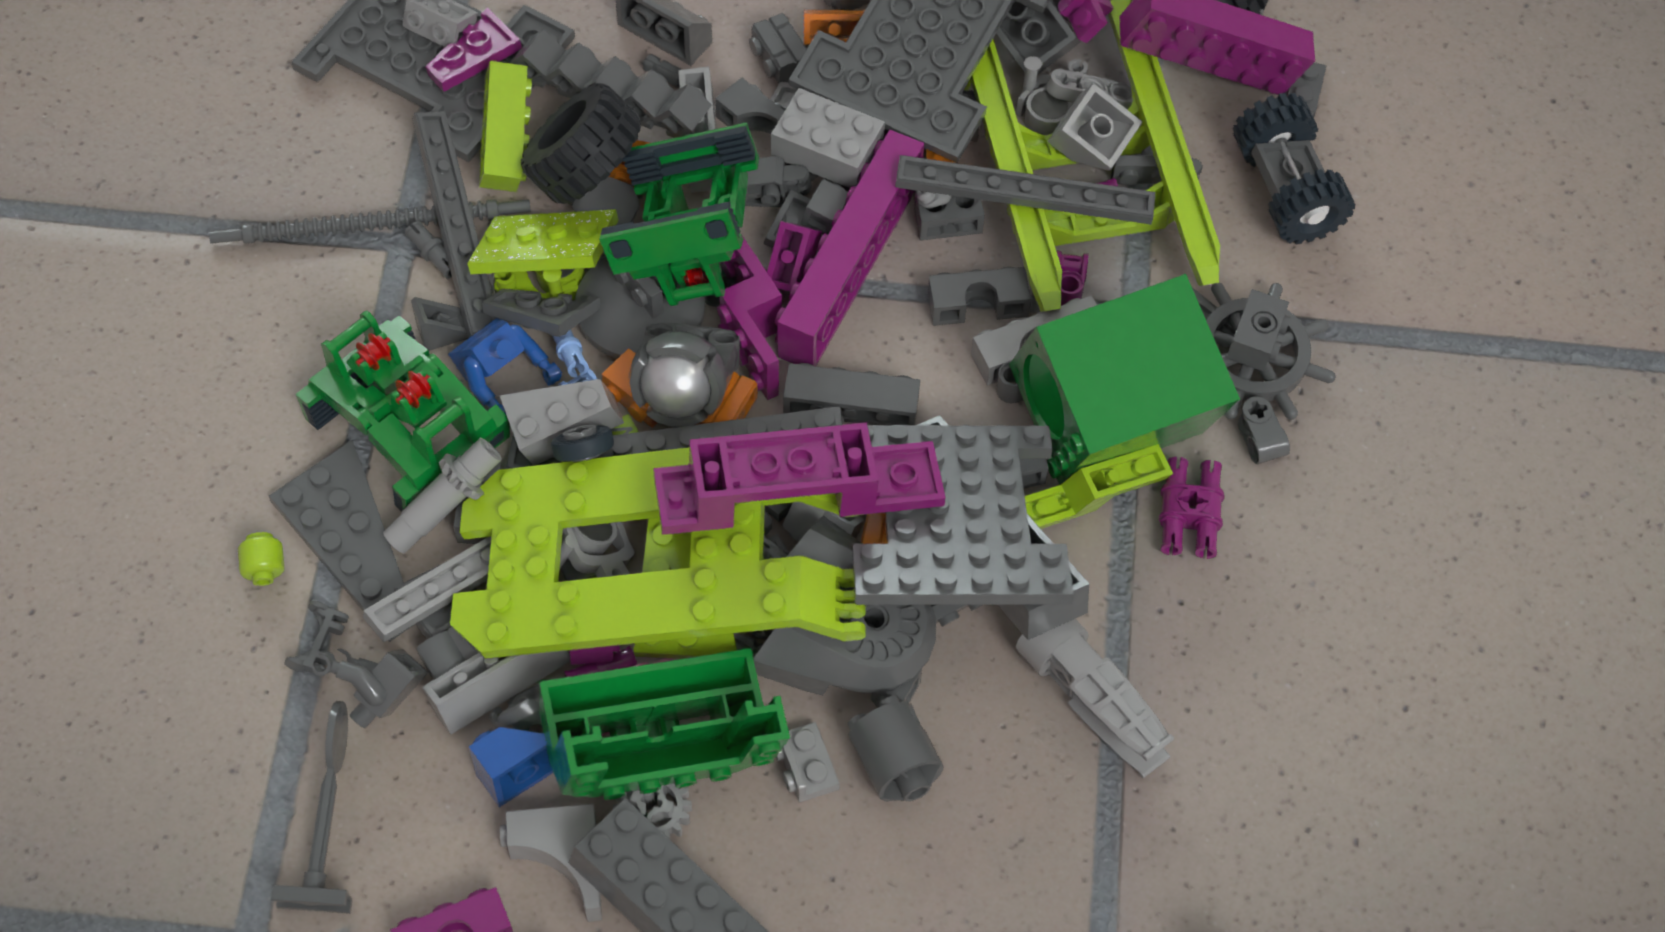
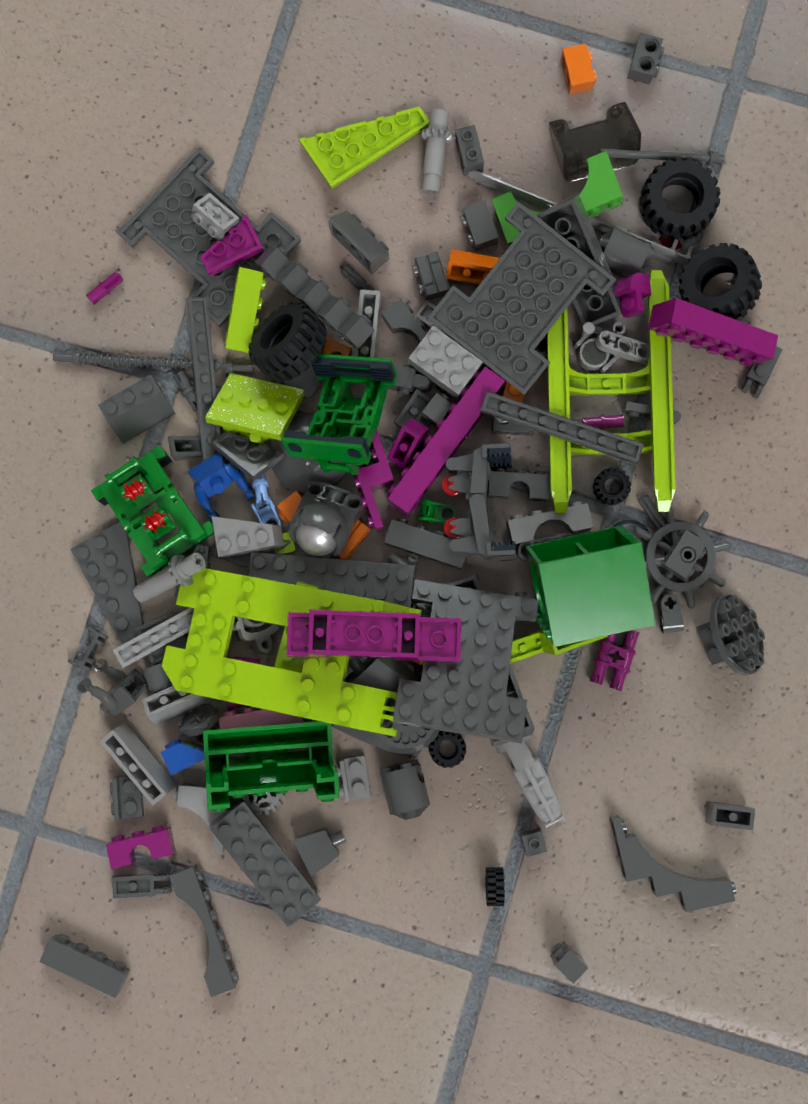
camera: 15 degrees right, 25 degrees up
(261, 558) = (60, 593): lime head -> none
(279, 137) = (104, 288): none -> magenta axle
(313, 893) = (66, 810): dark grey piece -> none
(351, 280) = (136, 409): none -> dark grey slope
(417, 859) = (126, 798): none -> dark grey bracket
(430, 792) = (138, 763): none -> light grey brick
(582, 443) = (254, 565): black wheel -> none
(766, 879) = (318, 848): none -> dark grey torso
(858, 350) = (435, 511): none -> green piece
(953, 669) = (459, 753): none -> black tyre
(954, 366) = (476, 493): none -> dark grey container
(1073, 275) = (580, 481): magenta piece -> none
(1084, 880) = (495, 886): none -> black tyre
(1095, 129) = (618, 383): light grey slope -> none
(1121, 260) = (620, 477): none -> black tyre
(1132, 803) = (533, 842): none -> dark grey brick
(1304, 196) = (737, 432): black plate -> none
(1320, 806) = (692, 891): none -> dark grey arch
(1363, 440) = (732, 635): none -> dark grey bracket
(1446, 702) = (730, 815): none -> dark grey brick

